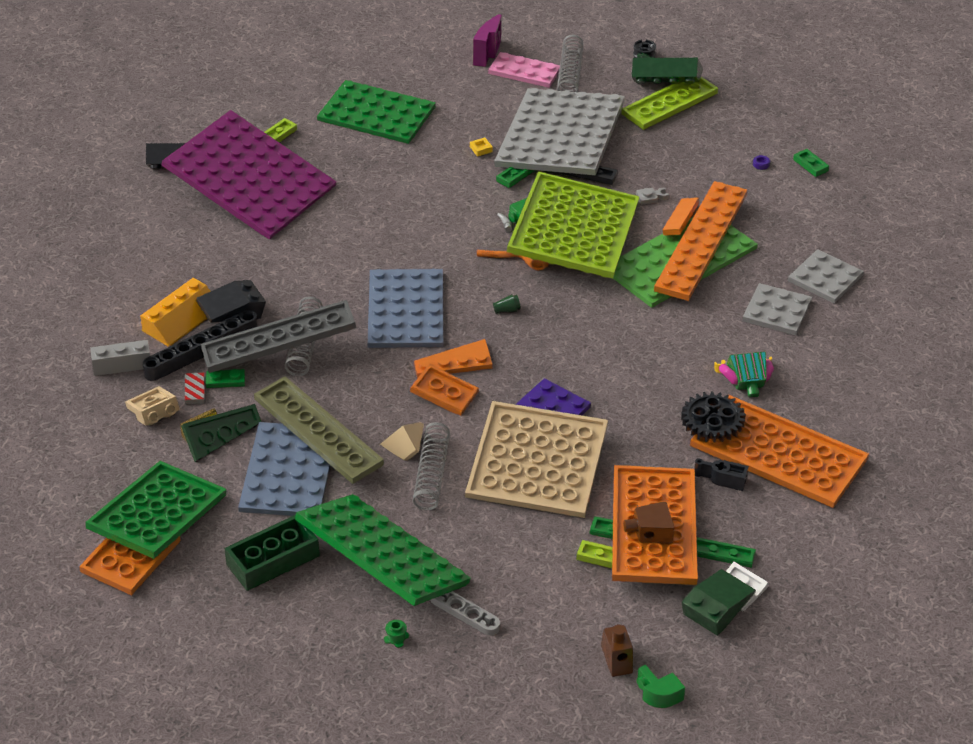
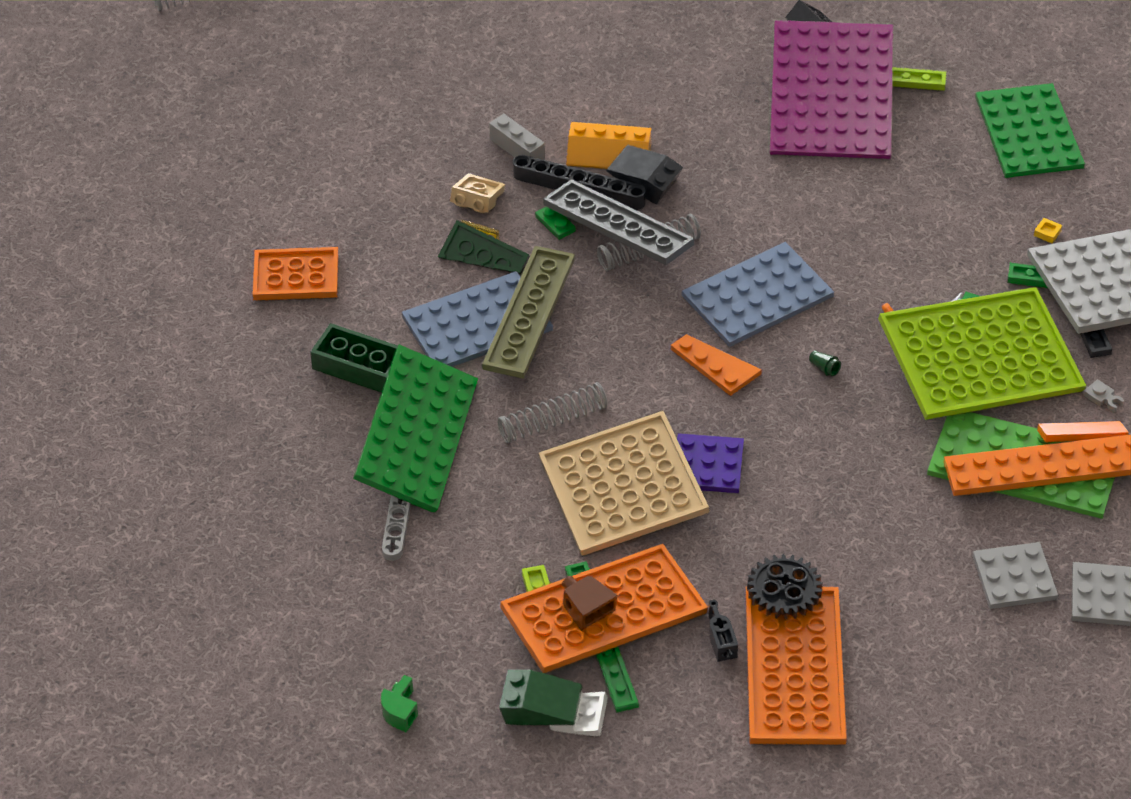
camera: 60 degrees right, 5 degrees up
(156, 509) = (351, 260): green plate -> none
(194, 388) = (524, 209): tile -> none
(396, 633) = (332, 488): green brick -> none
(405, 441) = (573, 377): tan slope -> none
(444, 389) = (664, 374): orange tile -> none
(614, 643) = (419, 651): reddish brown torso -> none
(747, 371) = (886, 590): torso -> none

